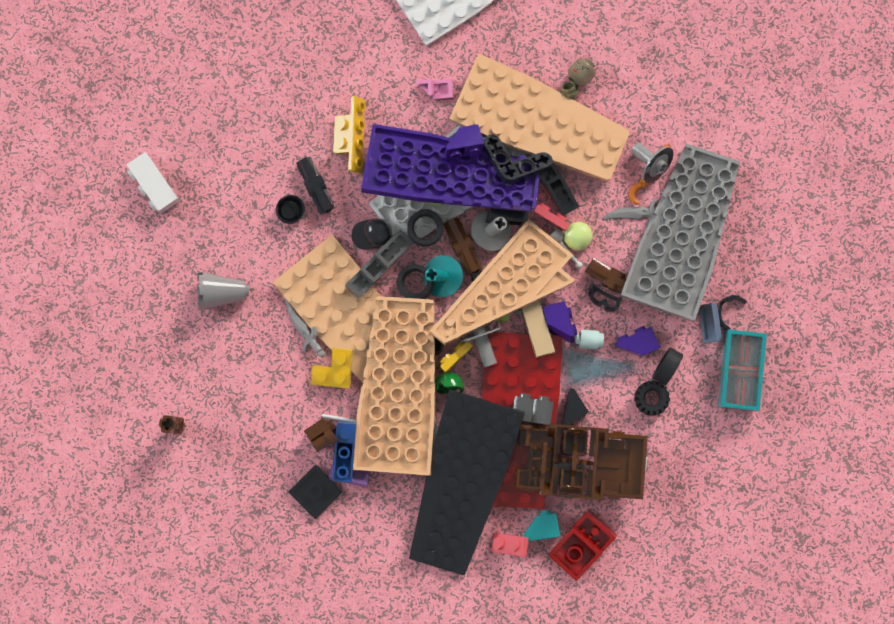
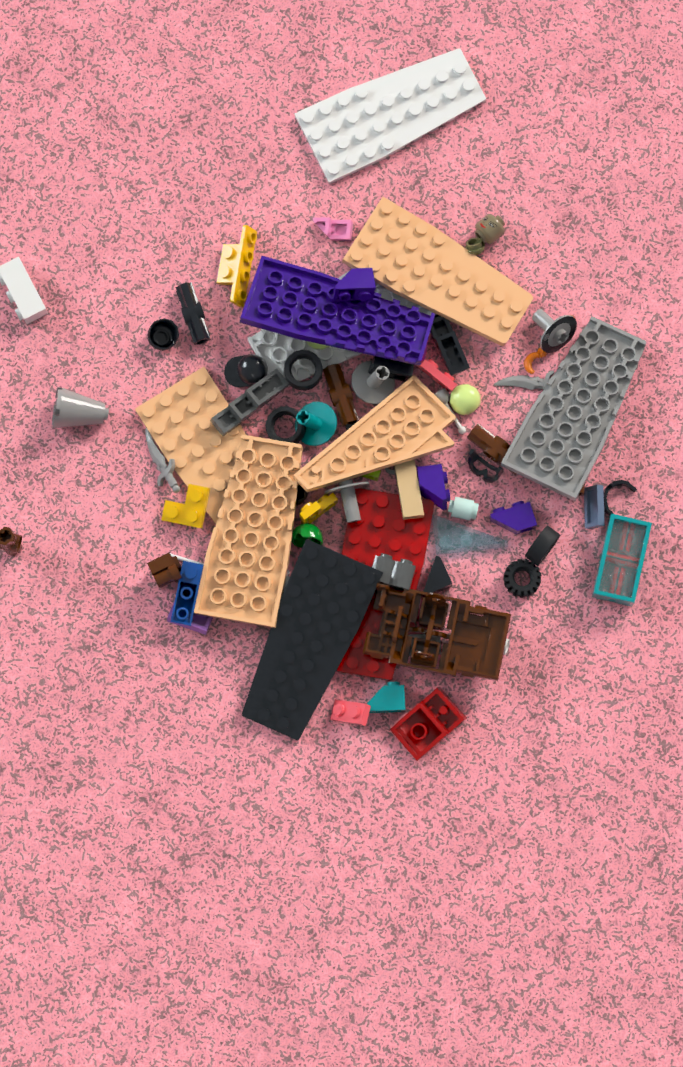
camera: 10 degrees right, 5 degrees down
(315, 491) = (151, 633): black tile -> none
(514, 167) = (403, 317): black beam -> none

